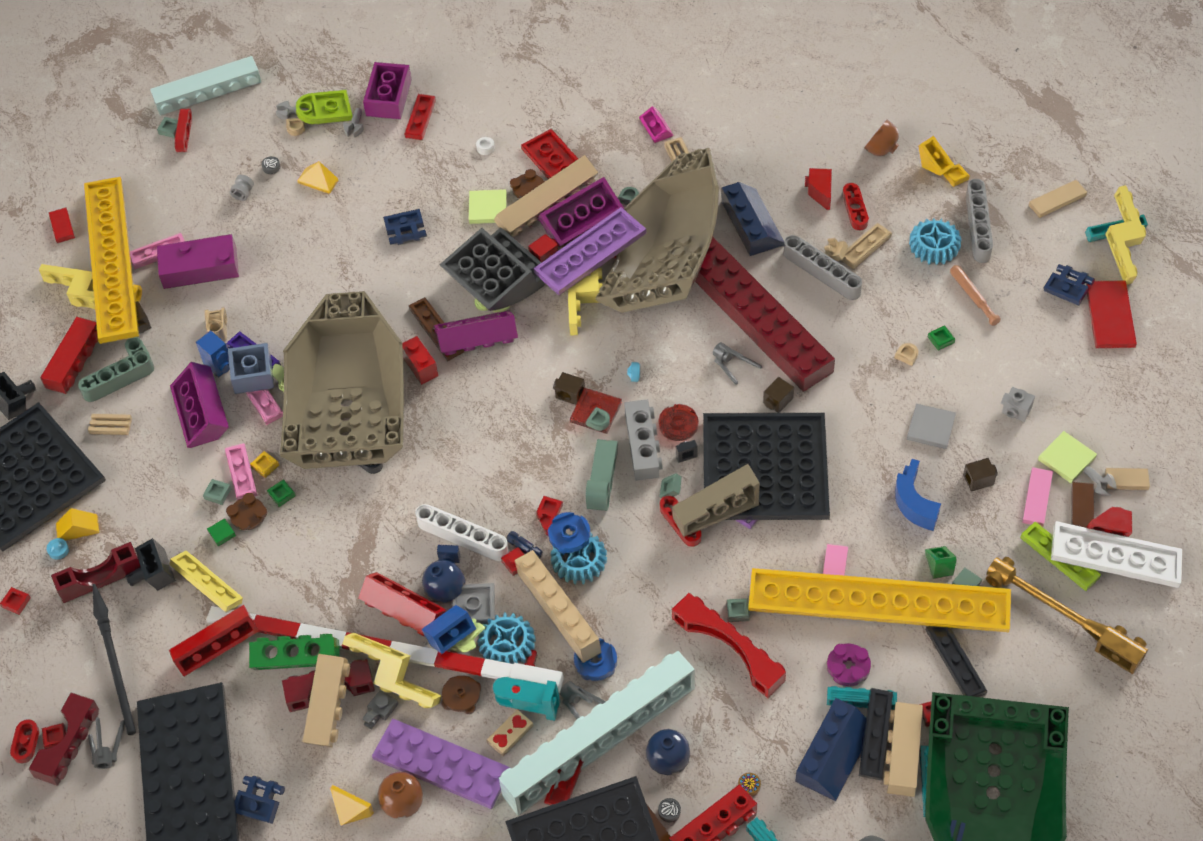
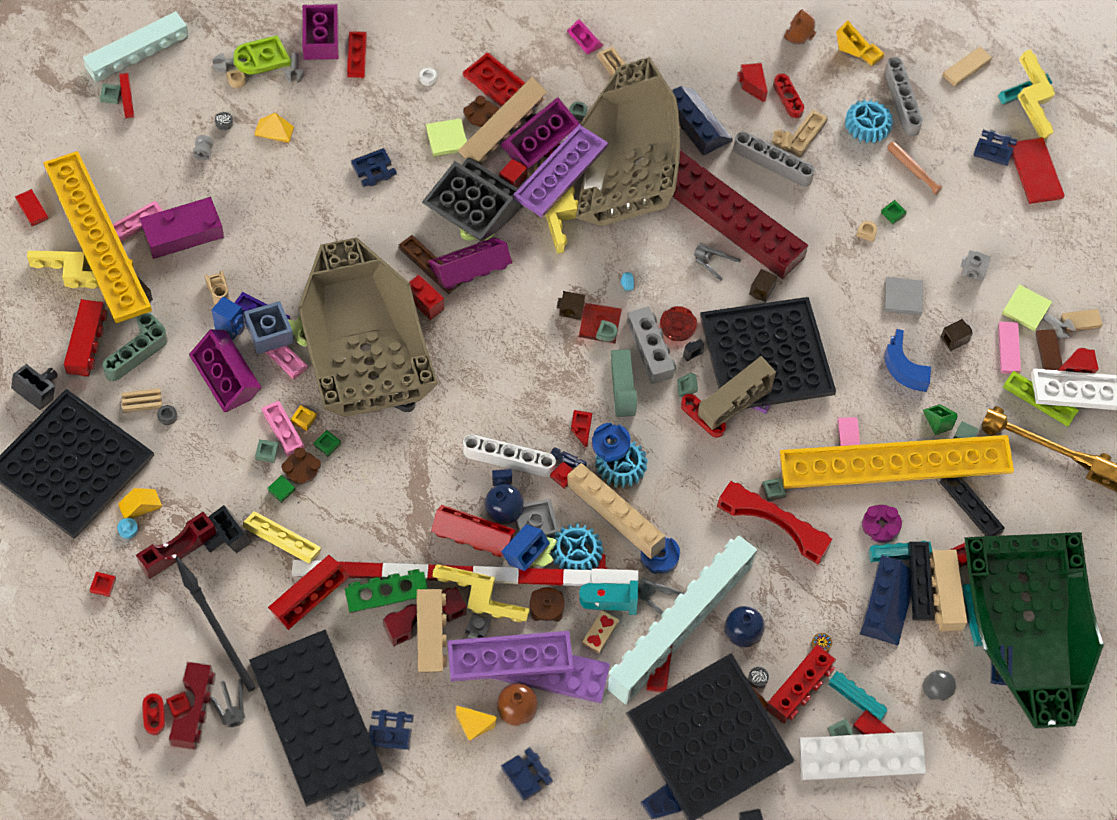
camera: 20 degrees left, 5 degrees up
(130, 442) = (167, 415): none -> dark grey tile
(403, 741) = (510, 656): none -> medium lavender plate

